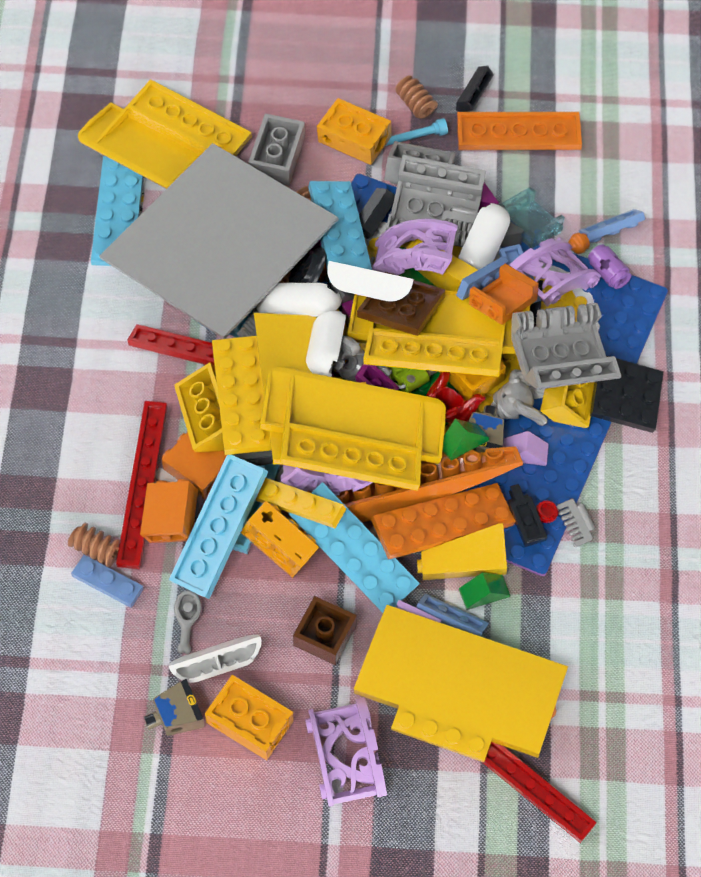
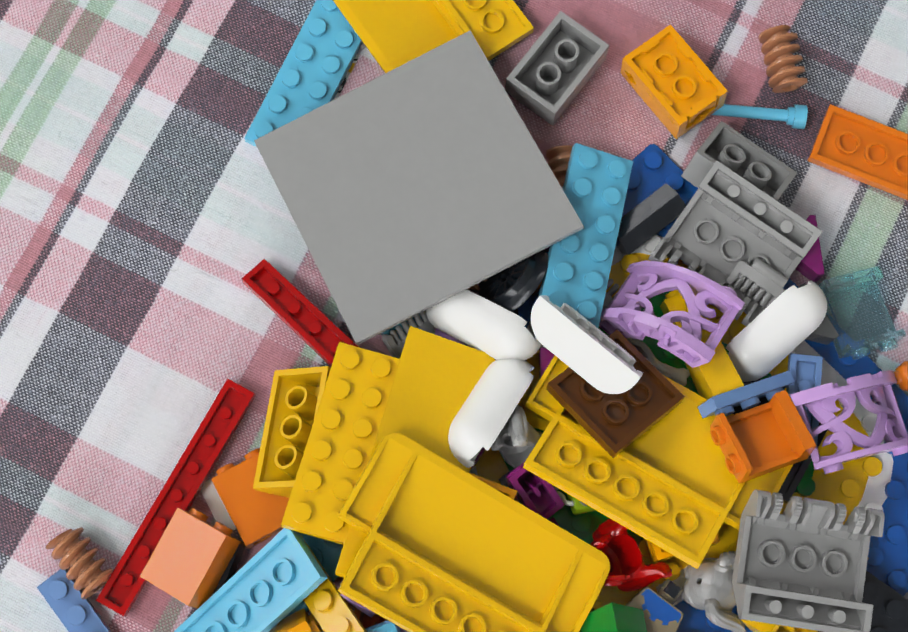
camera: 25 degrees right, 15 degrees up
(472, 88) = (870, 76): black piece -> none

